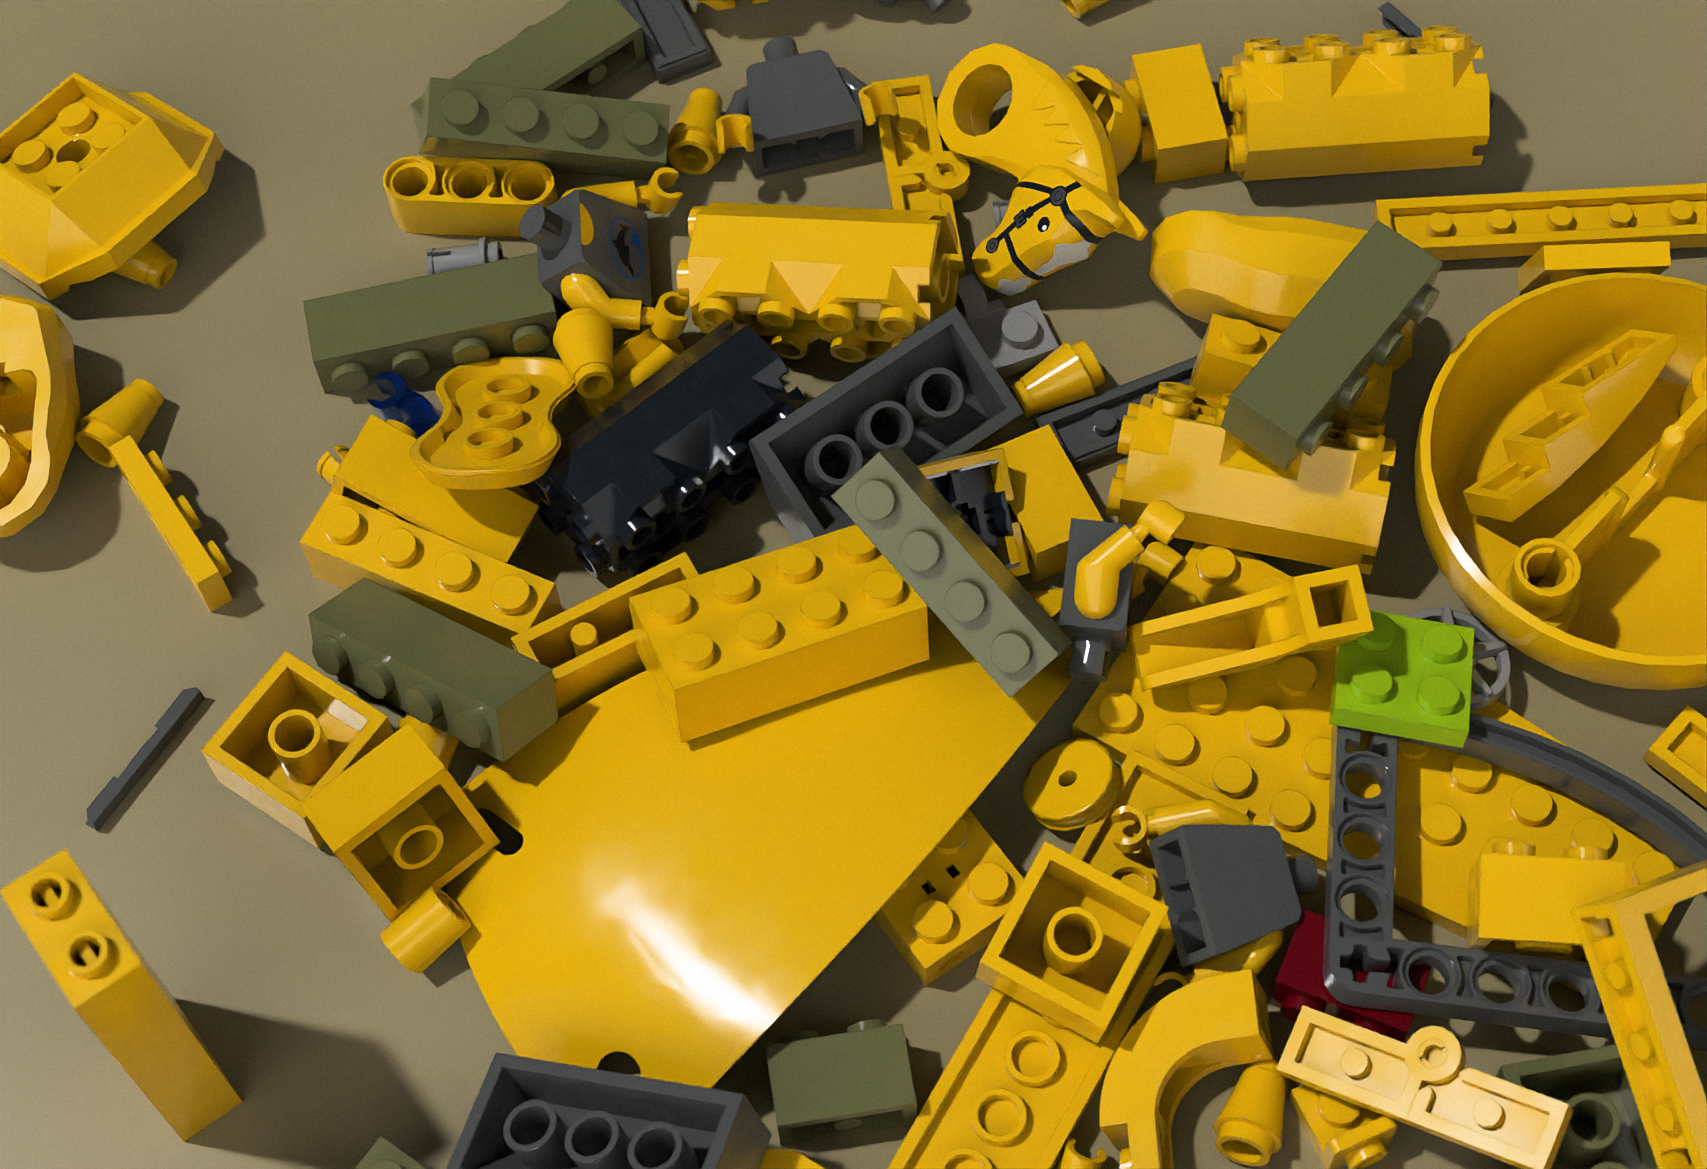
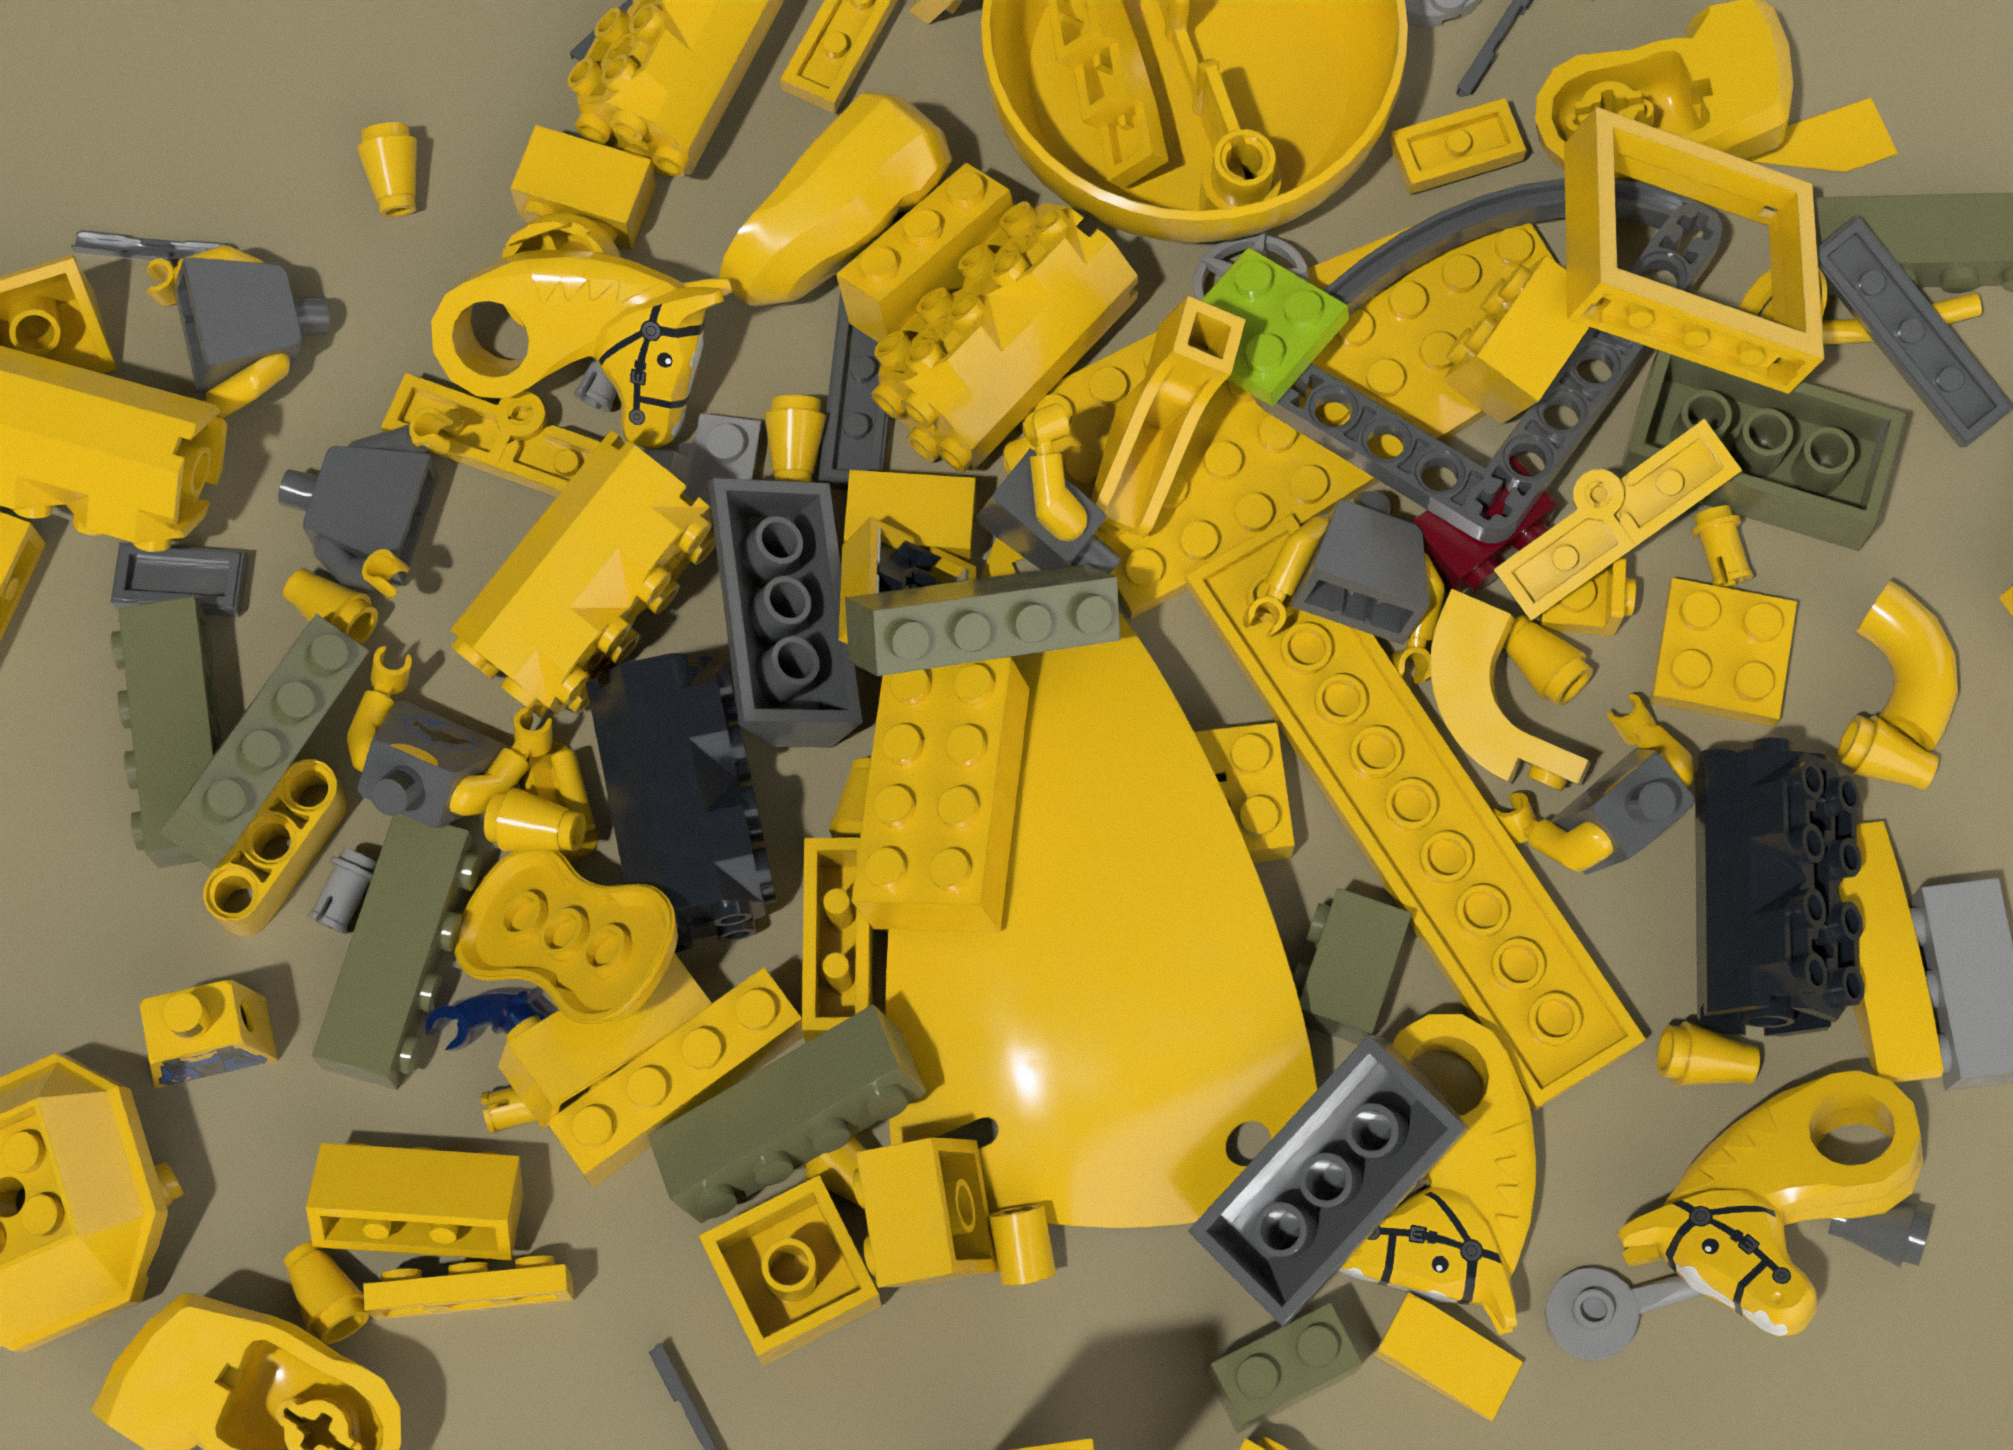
camera: 65 degrees left, 10 degrees up
(225, 442) = (415, 1201): none -> yellow brick
(273, 209) = (203, 1032): none -> yellow torso
(1071, 941) = (1351, 713): yellow brick -> none
(1087, 799) = (1211, 636): yellow piece -> none
(1332, 345) = (967, 194): olive brick -> none

